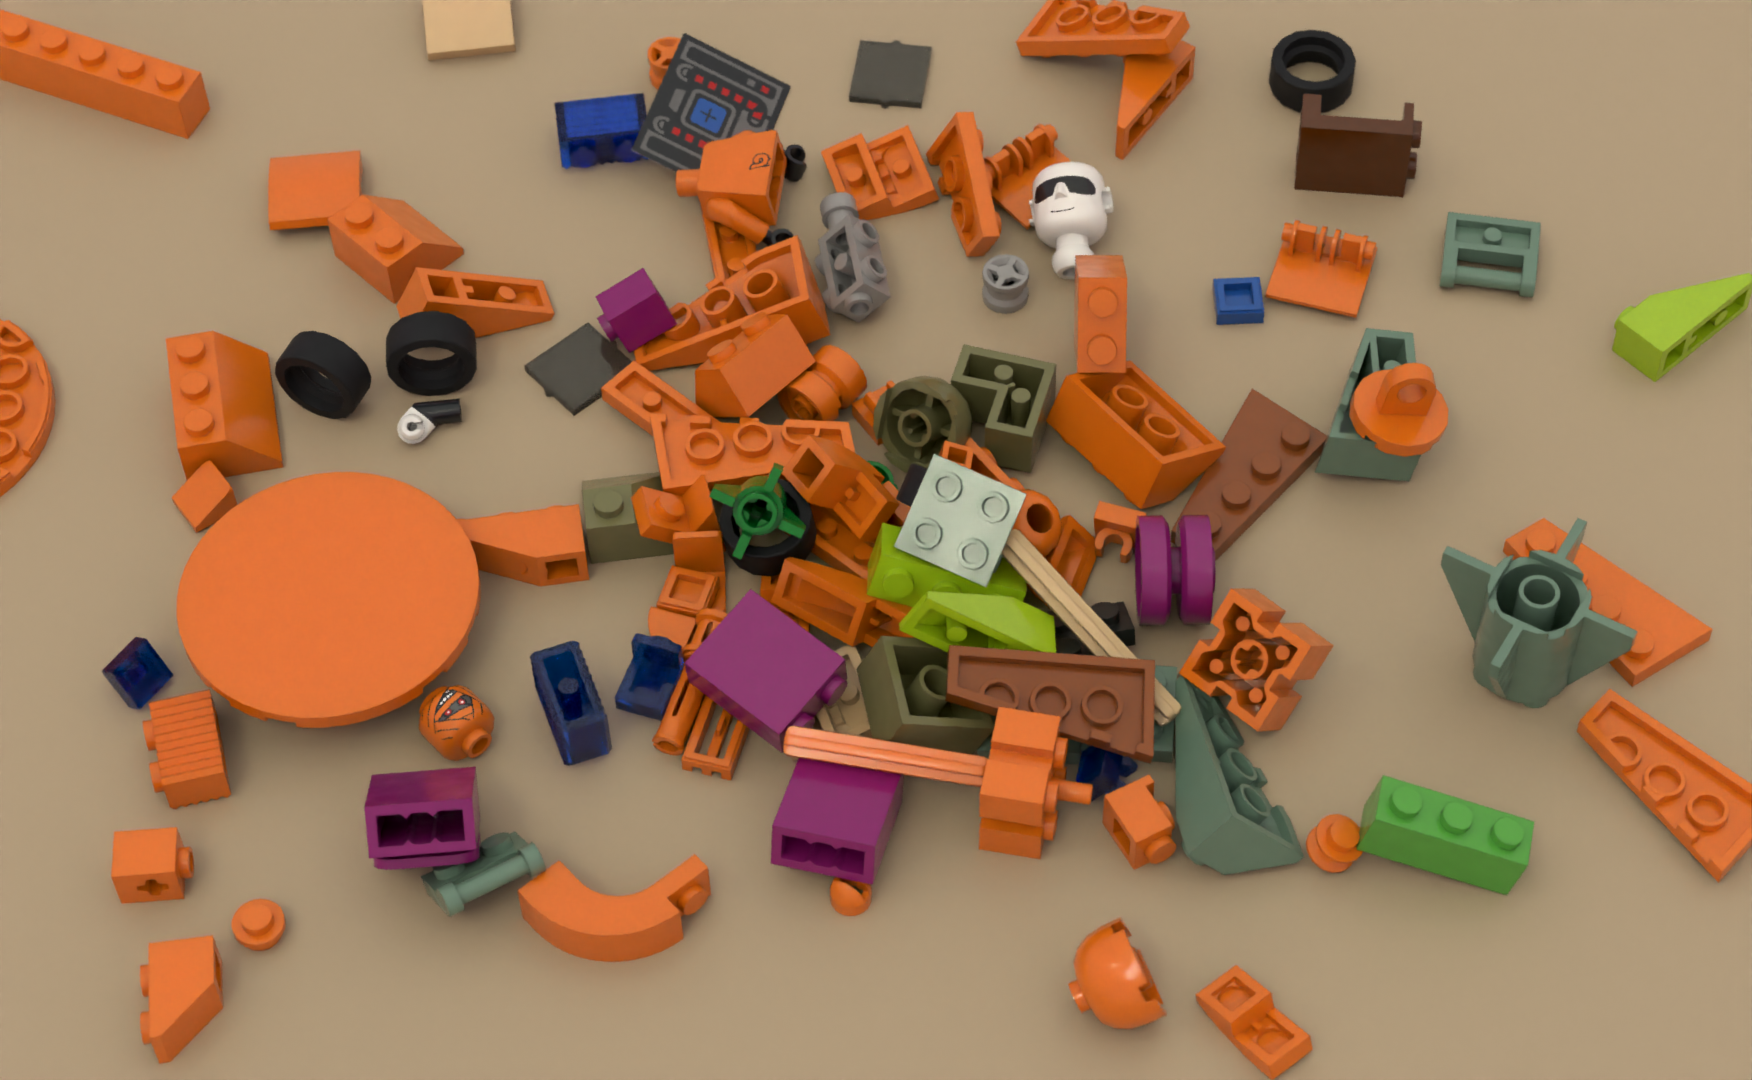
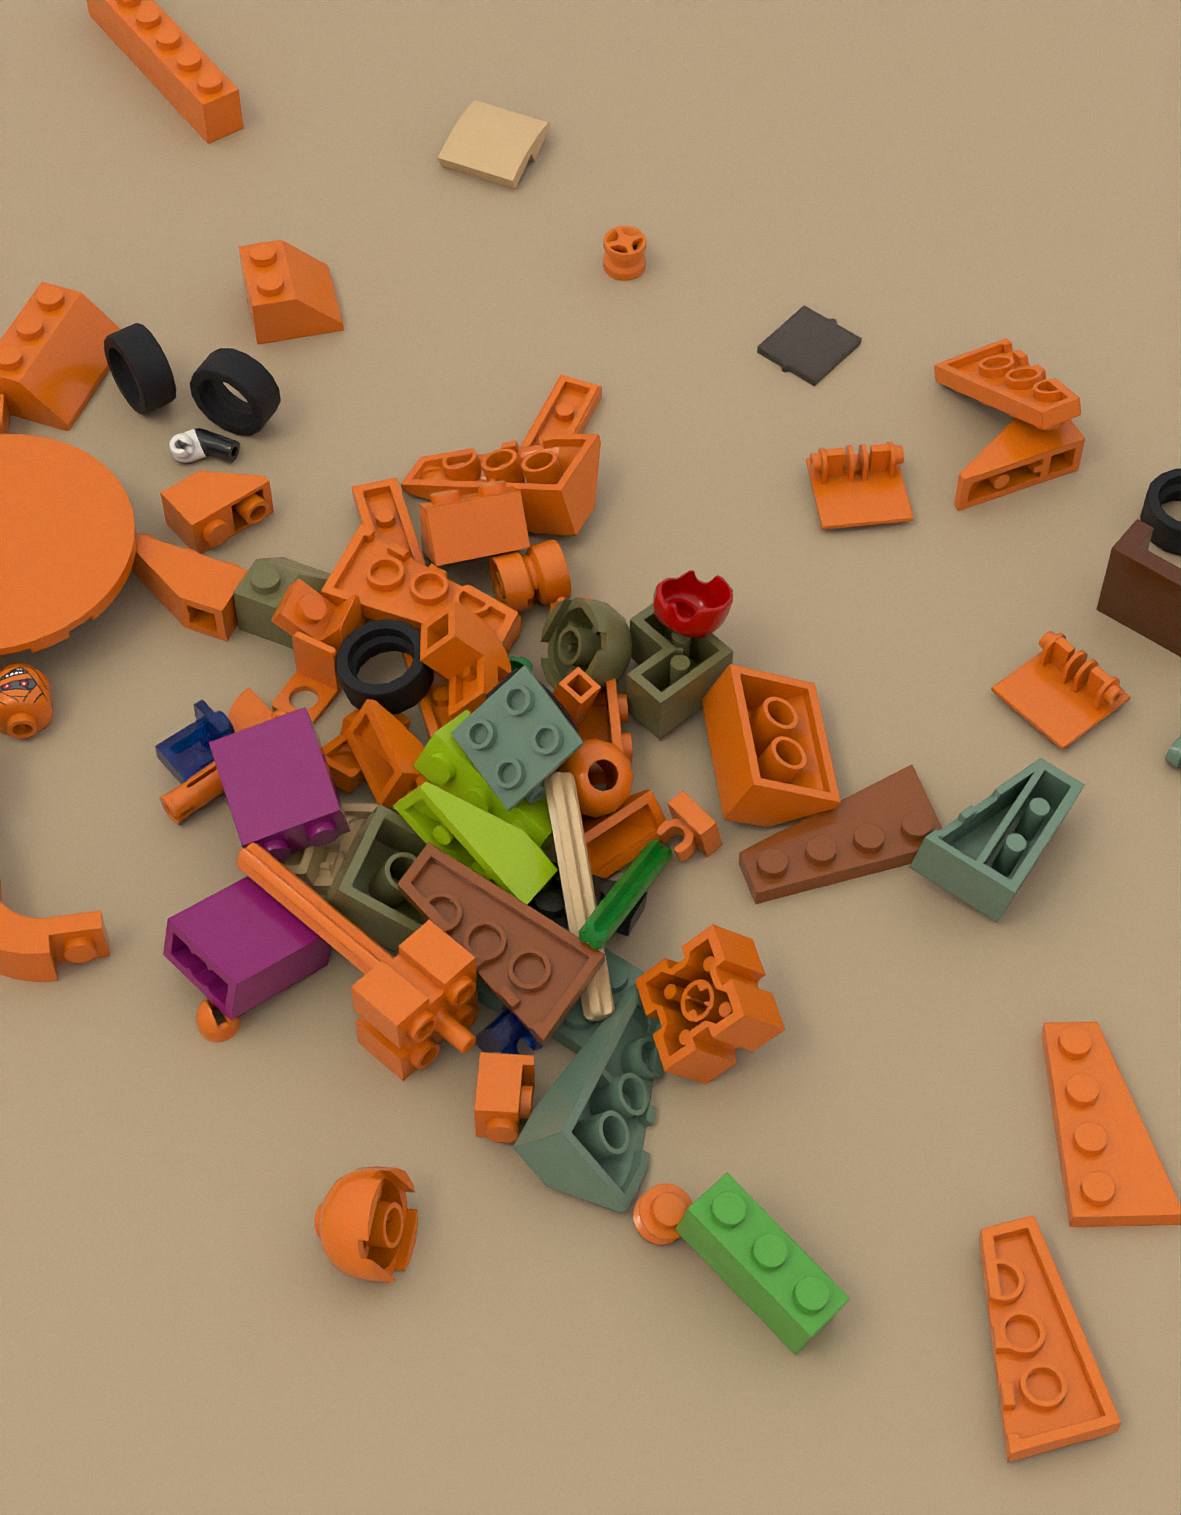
camera: 30 degrees right, 0 degrees up
(311, 188) = (262, 216): orange slope -> none
(484, 301) = (311, 371): orange slope -> none
(489, 466) = (215, 506): none -> orange slope
(571, 703) = (112, 731): clear blue brick -> none
(577, 368) = (354, 462): clear smoke piece -> none
(599, 129) = (525, 280): clear blue brick -> none
(634, 311) = (427, 436): magenta brick -> none
(688, 591) = (288, 690): orange tile -> none
(703, 101) = (621, 310): black sticker -> none
(710, 761) = (214, 840): orange tile -> none
(744, 182) = (600, 370): orange torso -> none
(754, 519) = (368, 642): green brick -> none
(850, 260) = (642, 481): light grey brick -> none
(881, 174) = (730, 425): orange slope -> none
(968, 182) = (792, 462): orange wing -> none
(1005, 283) = (762, 565): light grey wheel -> none
(1005, 341) = (691, 605): none -> red hair
(1070, 212) = (860, 532): white piece -> none
(1100, 314) = (803, 625): orange brick -> none
(1123, 607) = (625, 894): none -> green axle
(1177, 570) = (697, 881): magenta wheel -> none
(1238, 300) = (964, 682): blue tile -> none
(1252, 1023) = (466, 1336): orange slope -> none
(1400, 410) = (1008, 848): orange tile -> none
(1533, 621) = (987, 1107): sand green brick -> none

